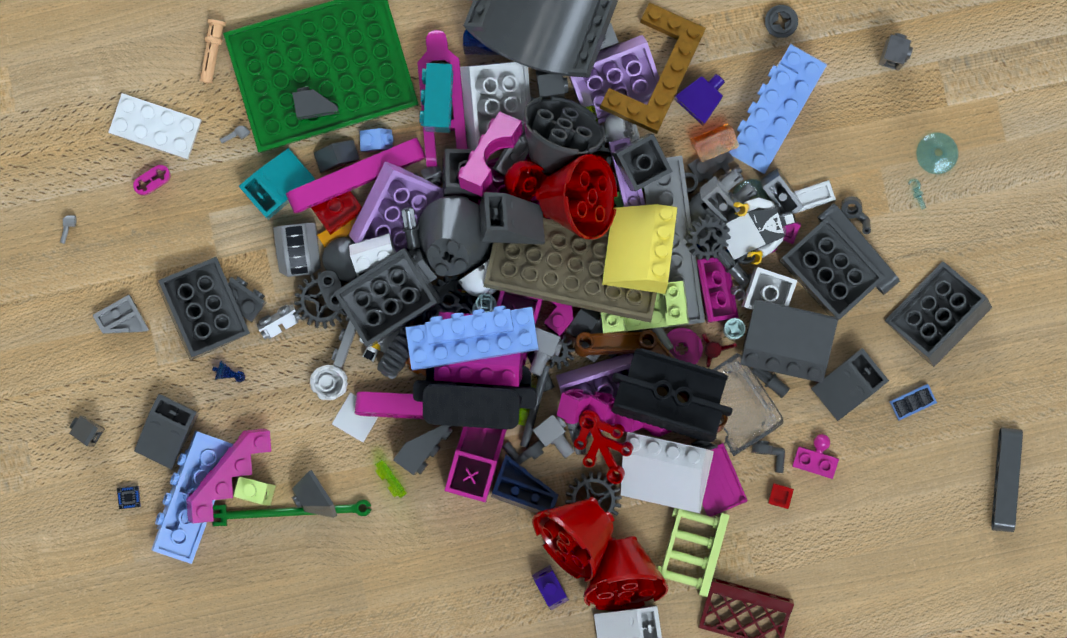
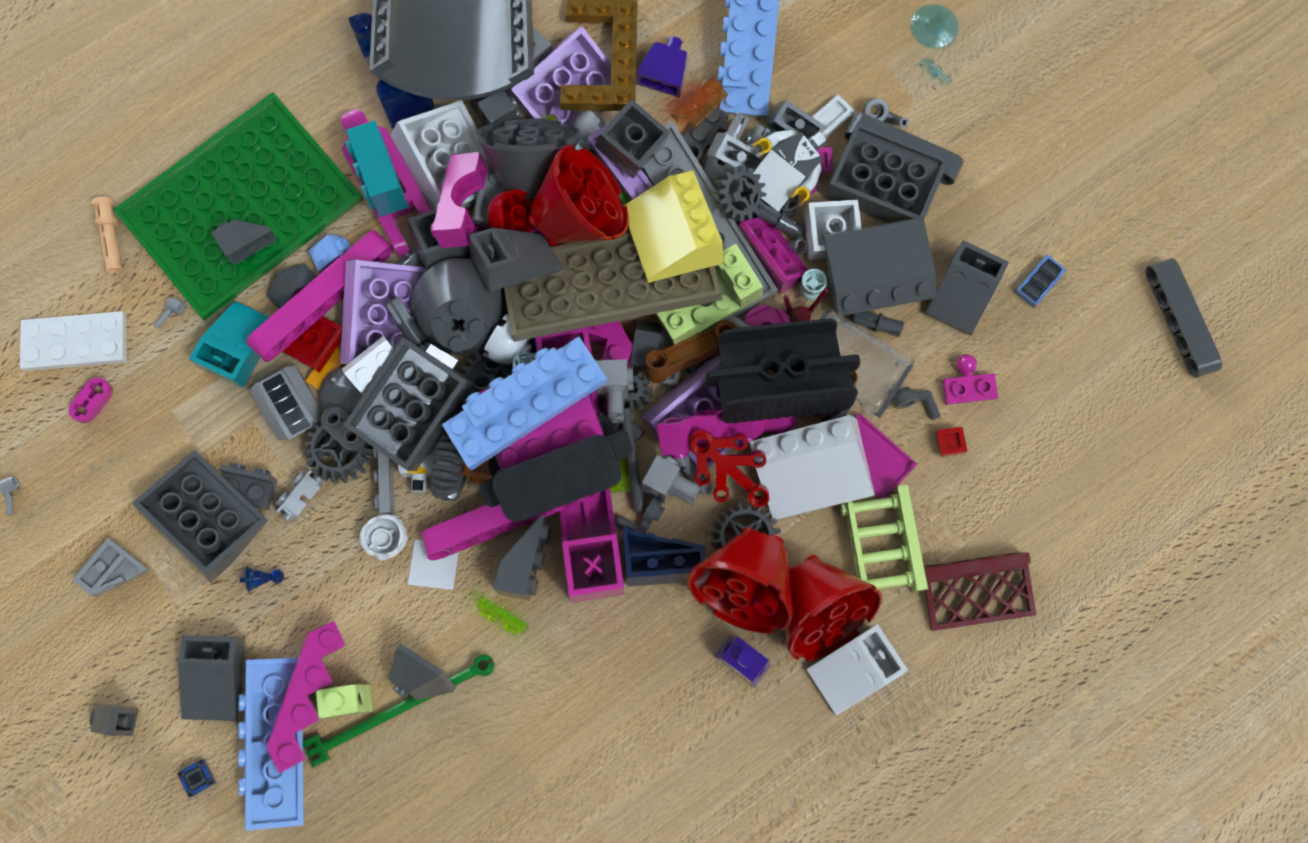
camera: 30 degrees left, 10 degrees down
(938, 313) = (1021, 177): dark grey slope -> none

